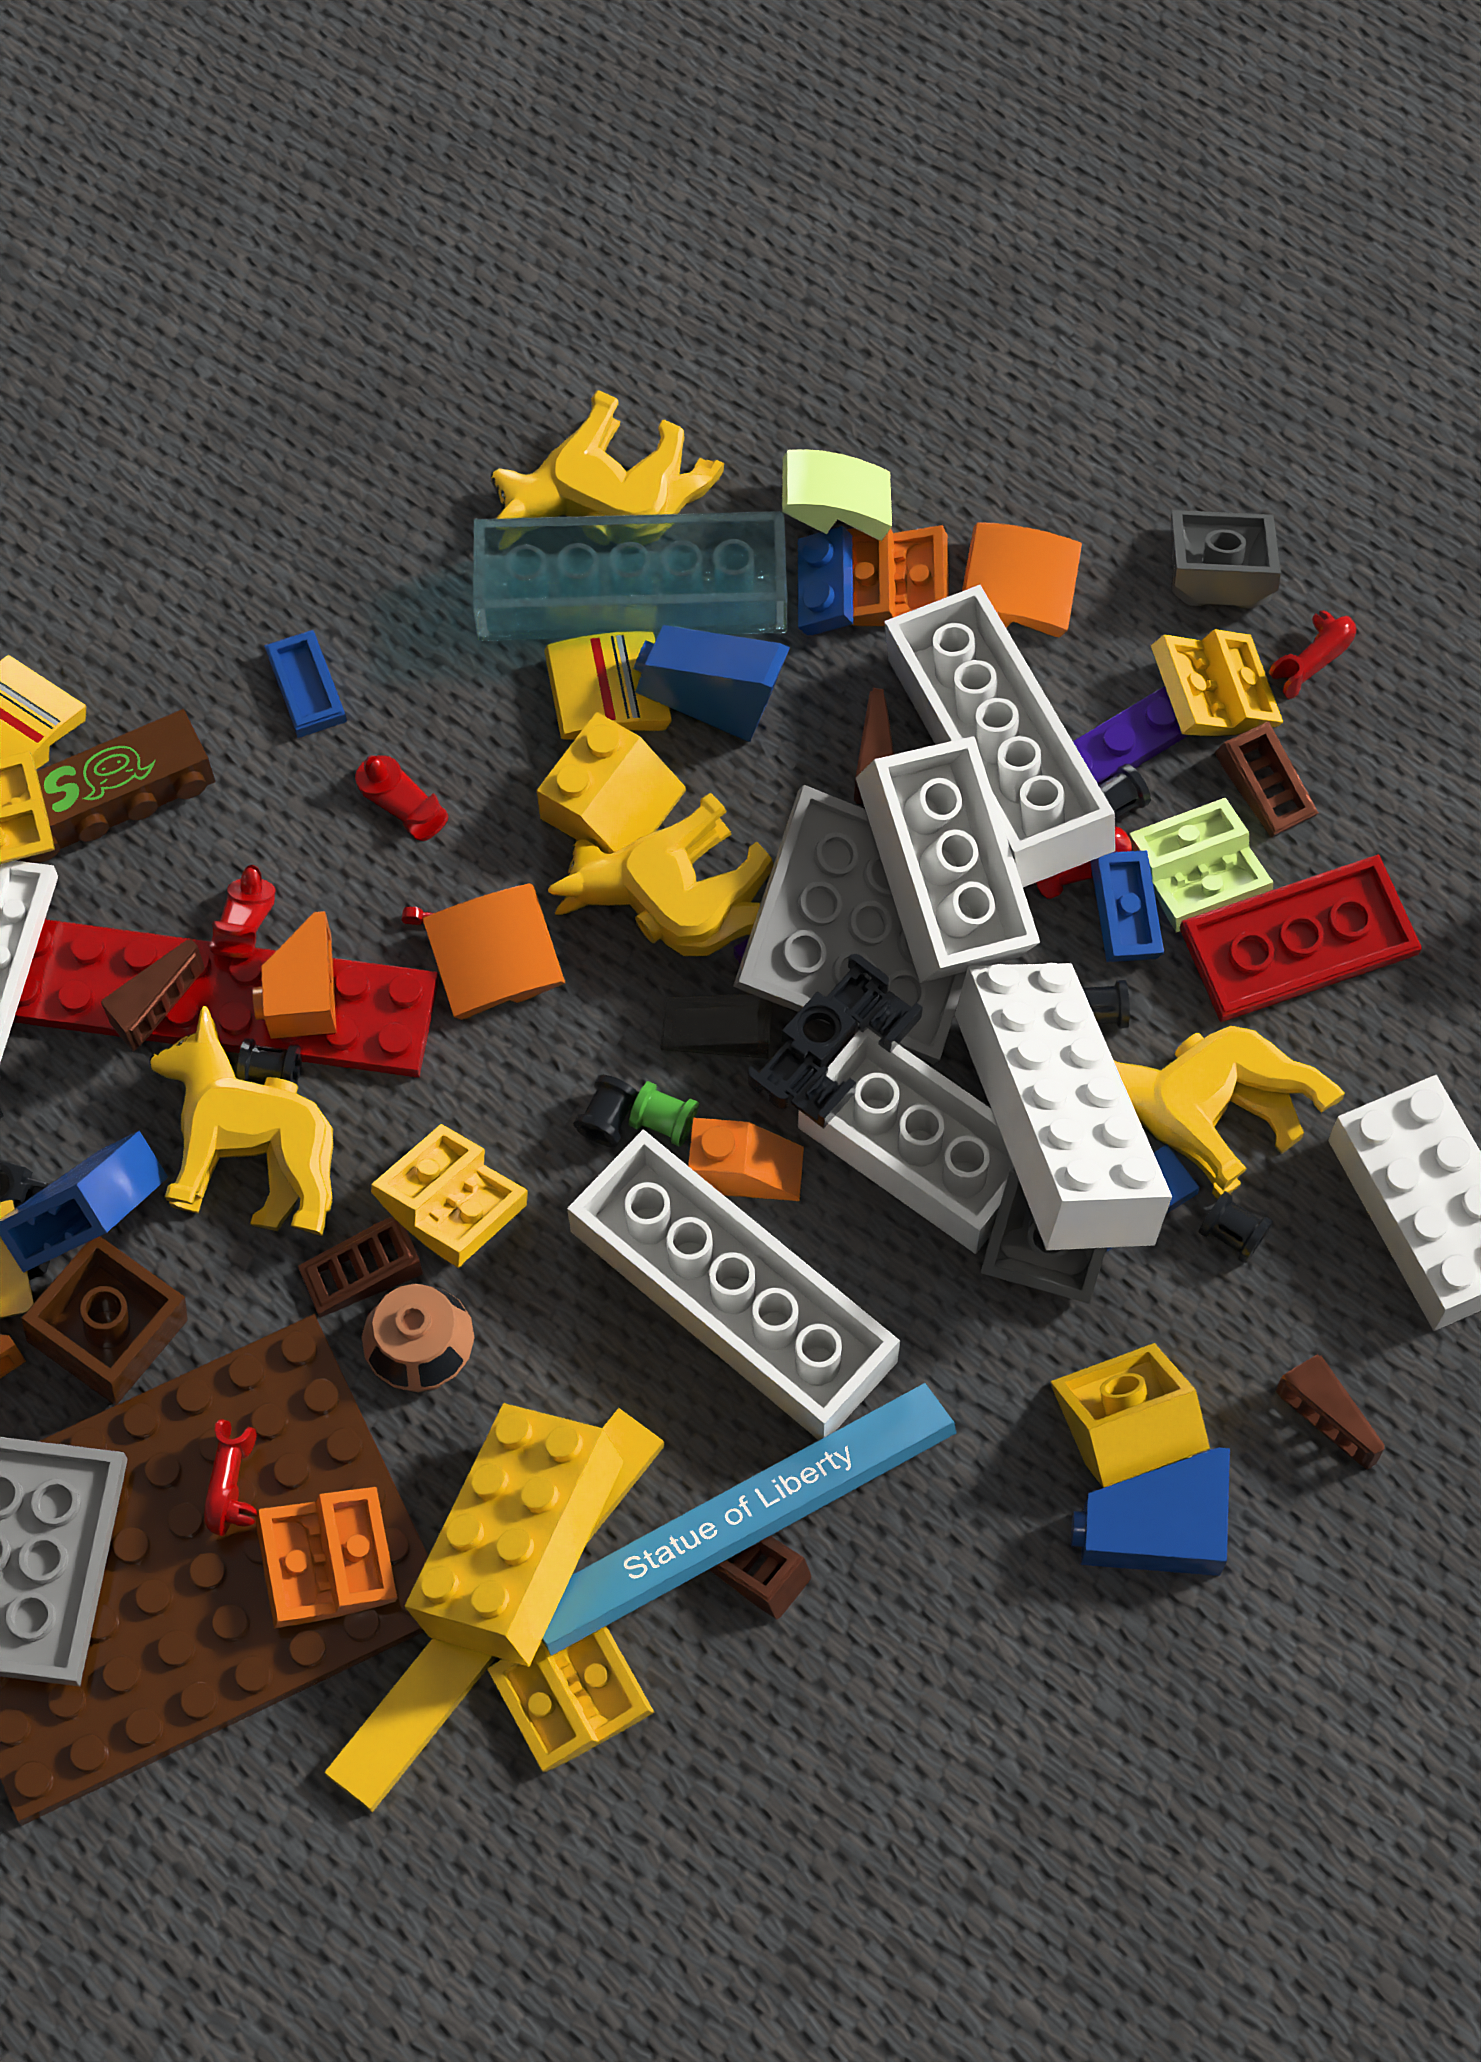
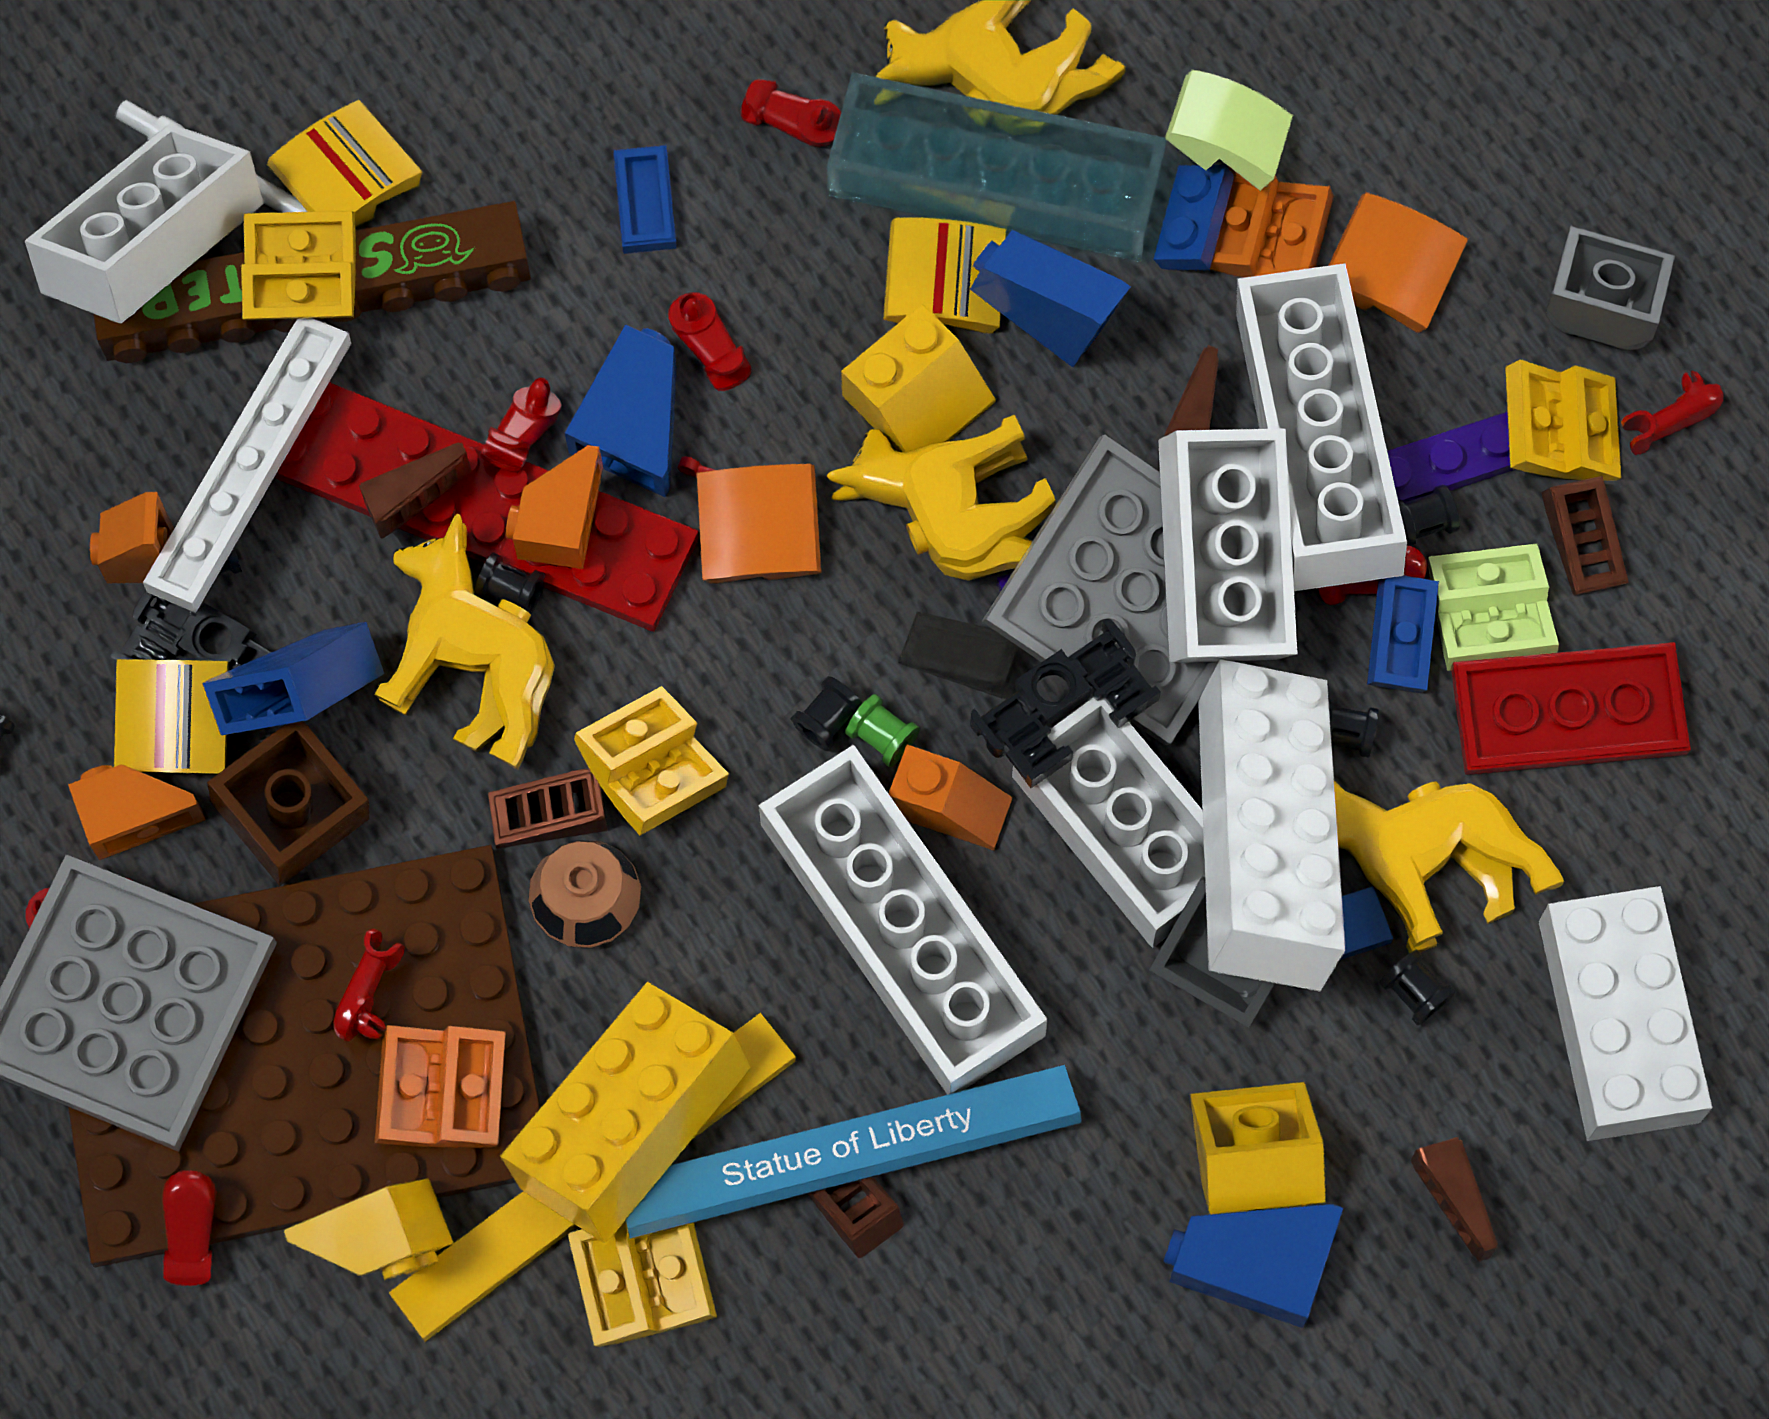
camera: 15 degrees right, 5 degrees up
(106, 1748) = (188, 1218): none -> red piece
(304, 1710) = (382, 1232): none -> yellow slope
(344, 876) = (631, 410): none -> blue slope
(441, 577) = (802, 118): none -> red piece

